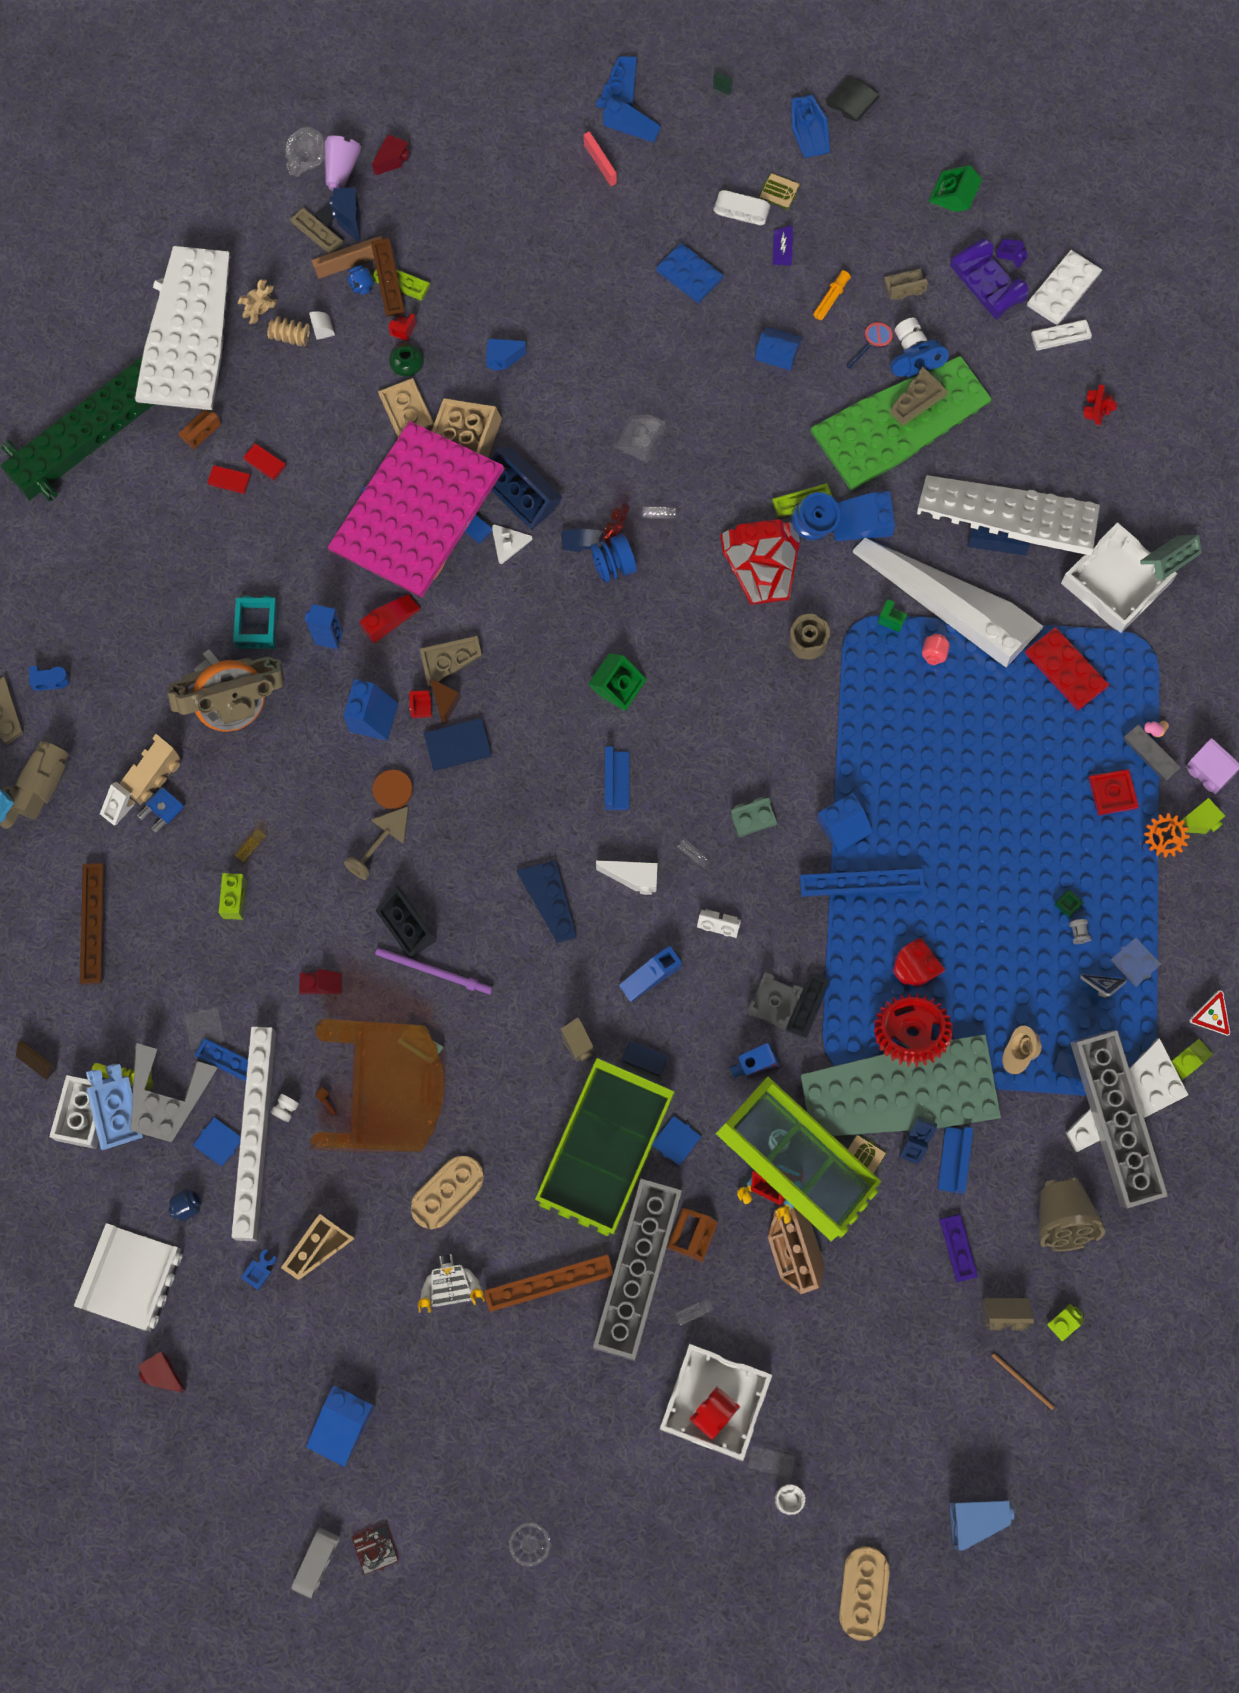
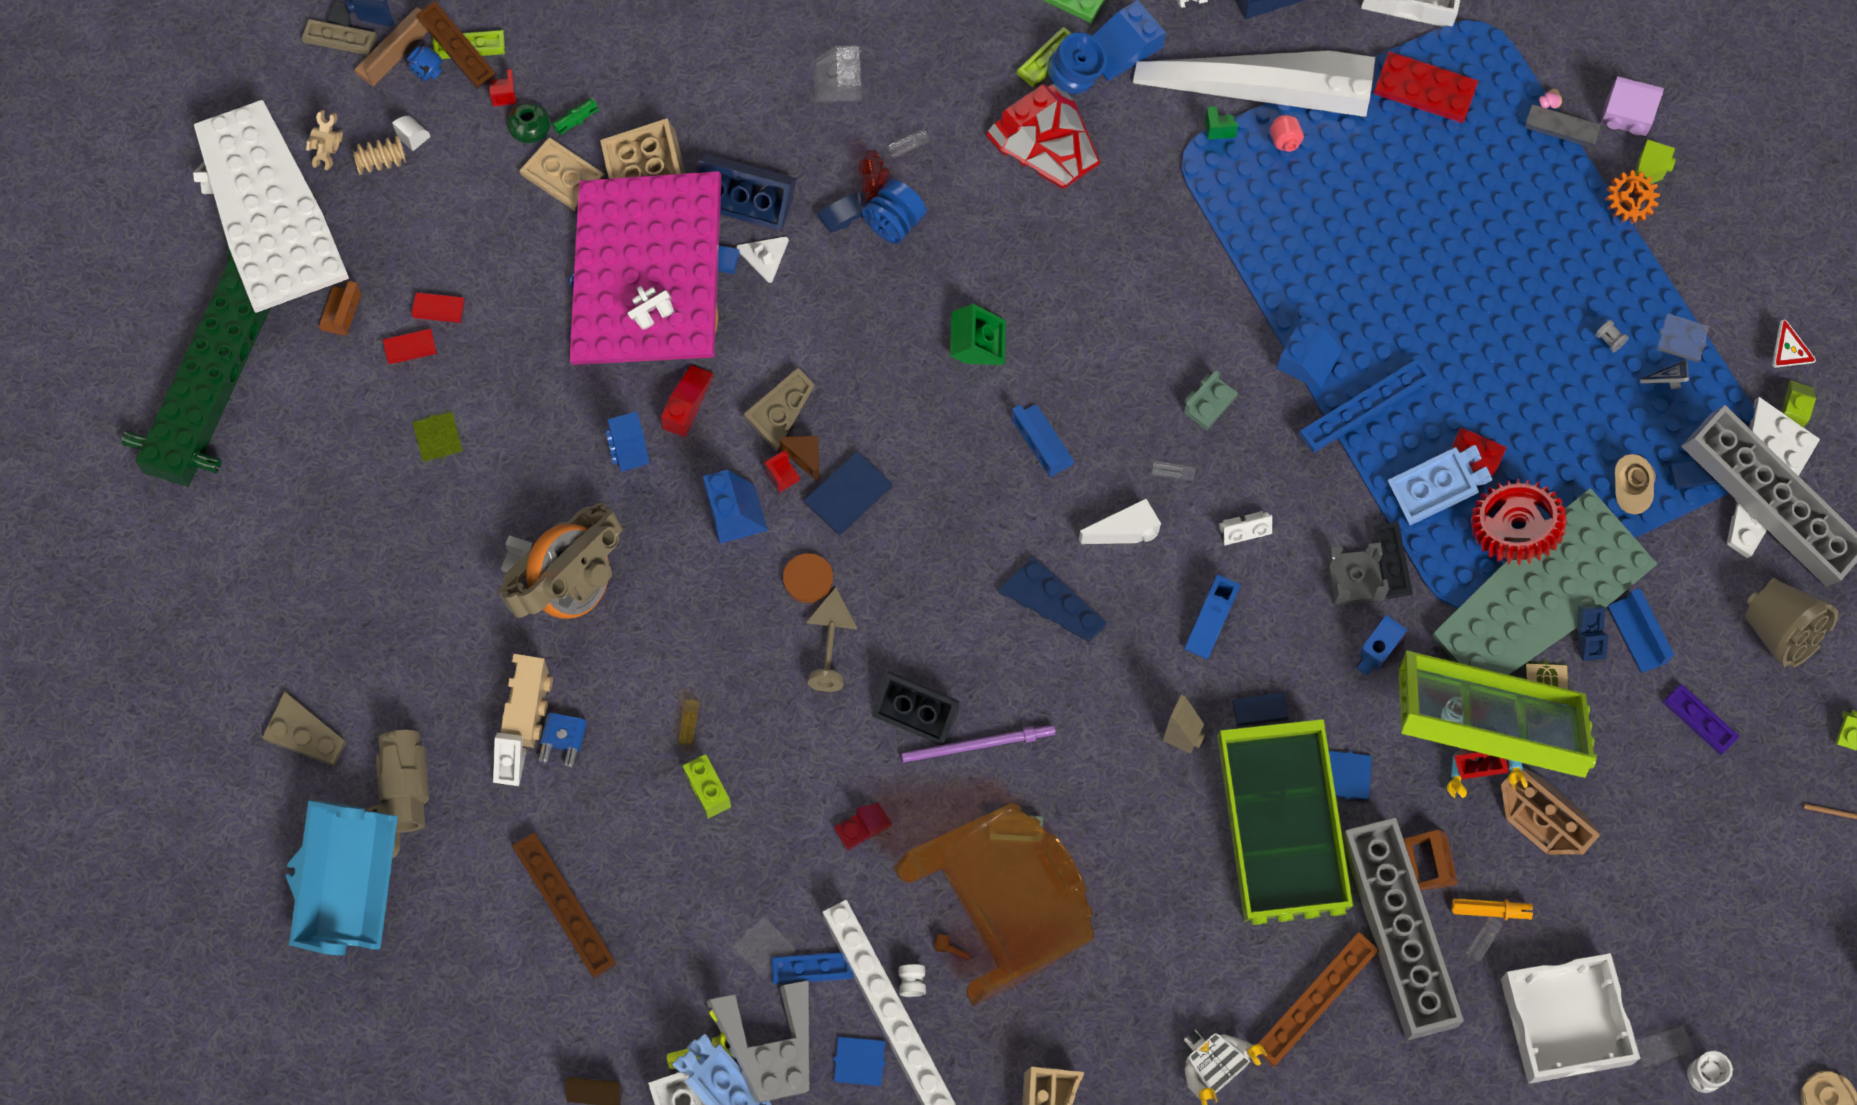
camera: 35 degrees left, 5 degrees down
(48, 679) = (339, 667): blue leg -> none
(209, 553) = (437, 436): none -> clear neon green piece
(256, 641) = (552, 501): teal window -> none
(388, 540) = (641, 313): none -> white hips
(439, 372) = (575, 116): none -> green pin
(447, 1192) = (1145, 968): tan tile -> none
(504, 353) = (633, 62): blue slope -> none
(713, 1293) = (1492, 908): none -> light orange axle
(714, 1413) = (1580, 1027): red brick -> none
(819, 635) = (1149, 187): dark tan brick -> none
(874, 969) = (1438, 483): none -> light blue tile
(1007, 1312) = (1794, 754): dark tan slope -> none
(1068, 903) = (1581, 315): dark green tile -> none
(1113, 792) = (1551, 183): red tile -> none

